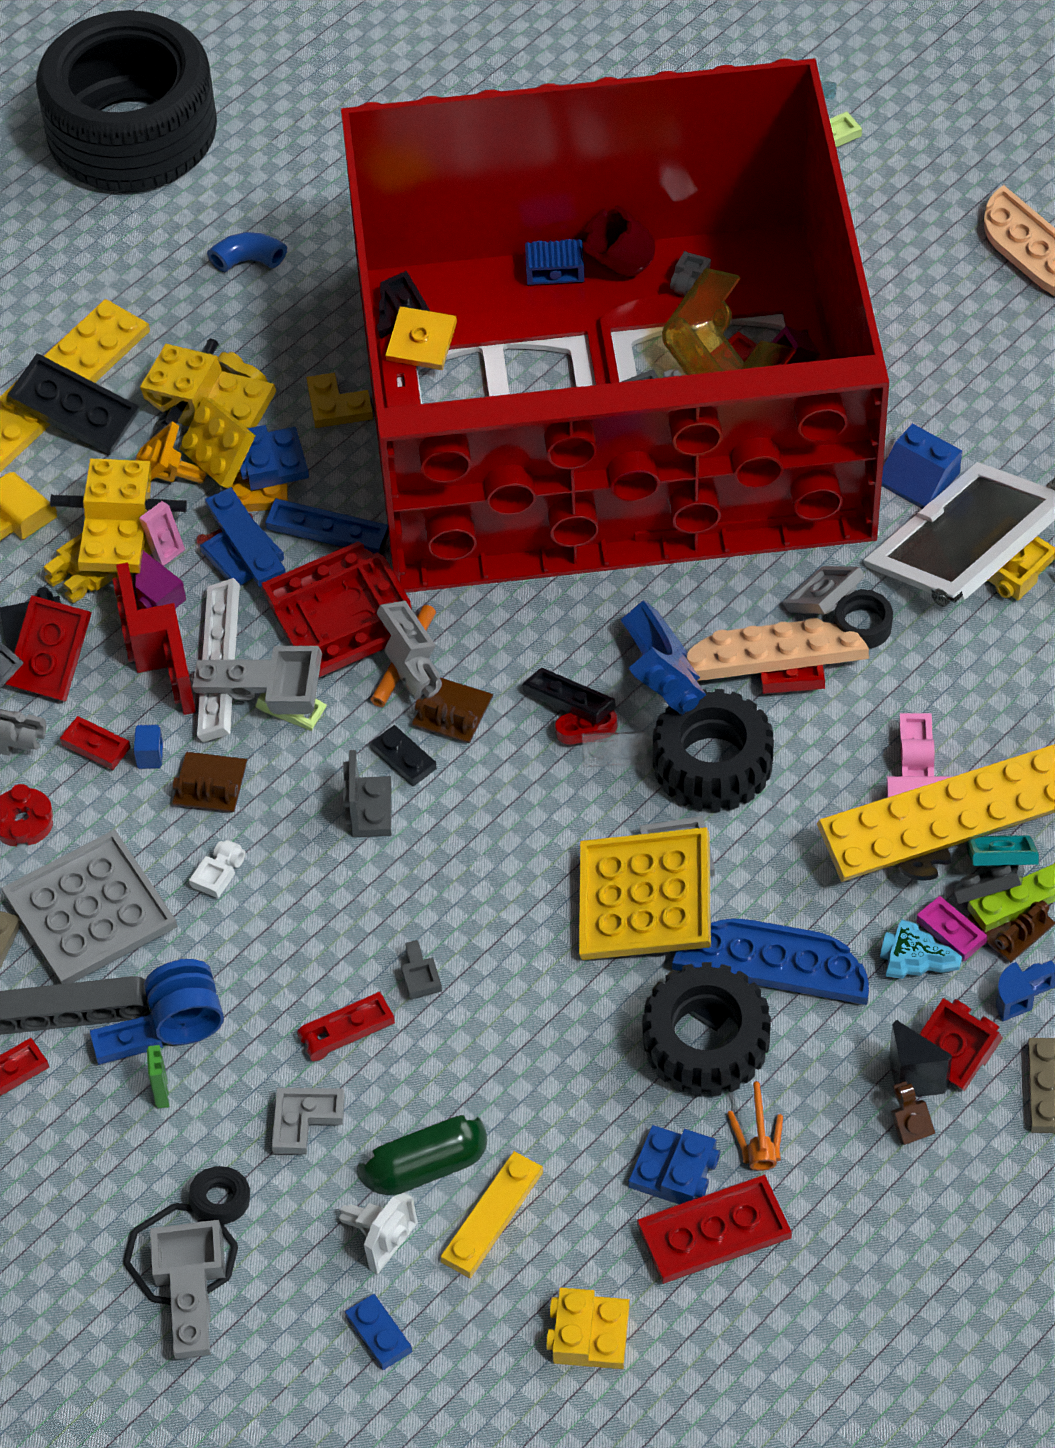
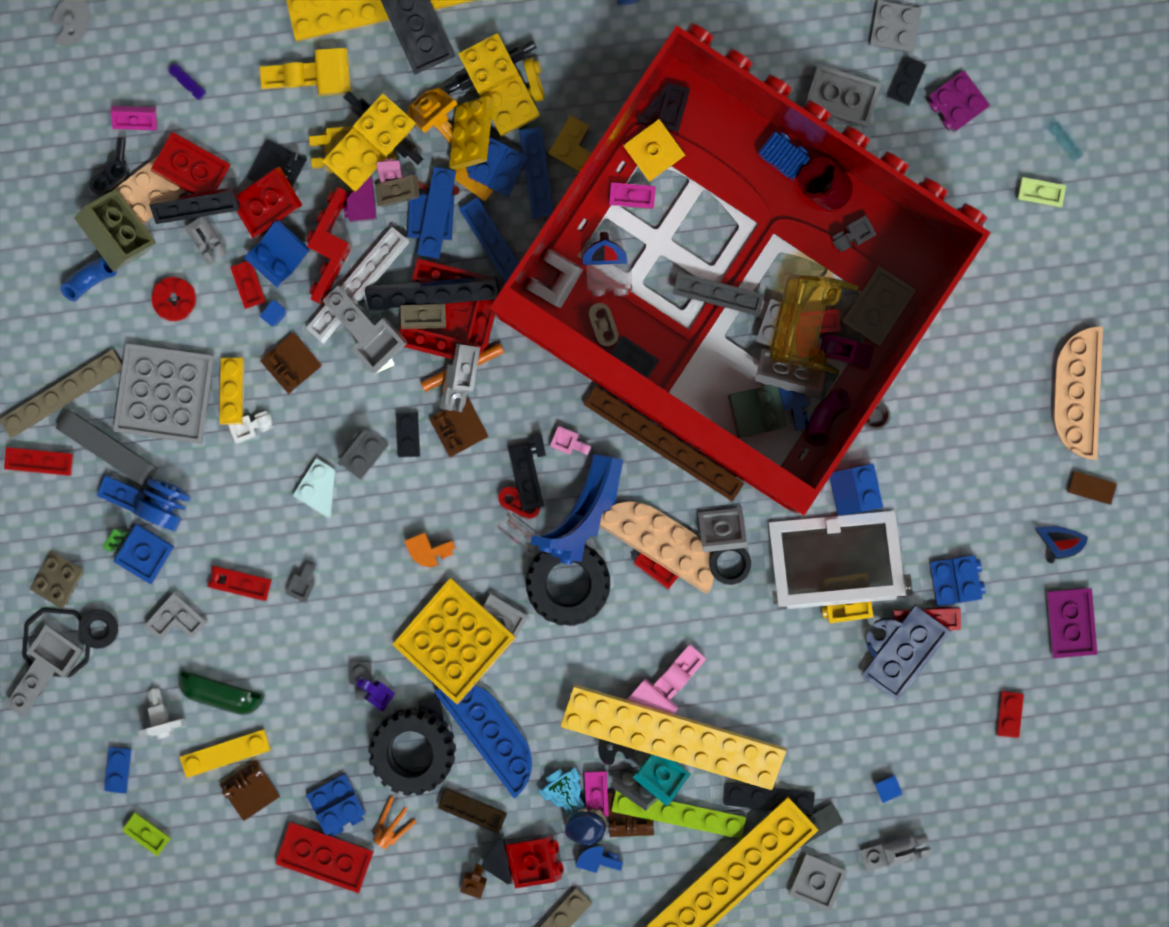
camera: 35 degrees right, 35 degrees up
(103, 681) = (277, 254): none -> blue bracket
(124, 1181) = (57, 579): none -> dark tan hinge
(166, 848) = (231, 391): none -> yellow plate
(185, 547) = (397, 191): none -> dark tan plate
(206, 1079) = (143, 553): none -> blue plate
(307, 594) = (432, 292): none -> black plate
(317, 624) = (423, 316): none -> dark tan plate
(321, 444) = (537, 172): none -> blue plate
(351, 874) = (318, 487): none -> light aqua wing
(437, 385) = (632, 195): none -> dark pink plate
(477, 1371) = (146, 834): none -> lime plate
(528, 842) = (423, 553): none -> orange brick
(555, 659) = (537, 446): none -> black plate
(558, 1229) = (249, 790): none -> reddish brown hinge
(575, 1016) = (357, 670): none -> dark grey plate
(583, 638) = (567, 441): none -> bright pink plate
(588, 1329) = (218, 857): yellow plate -> none
(611, 1012) = (377, 693): none -> dark purple plate
(684, 569) = (663, 444): none -> reddish brown plate
(774, 301) = (878, 306): none -> dark tan plate
(833, 1050) = (472, 810): none -> dark brown plate
(973, 960) = (585, 826): none -> dark blue hair

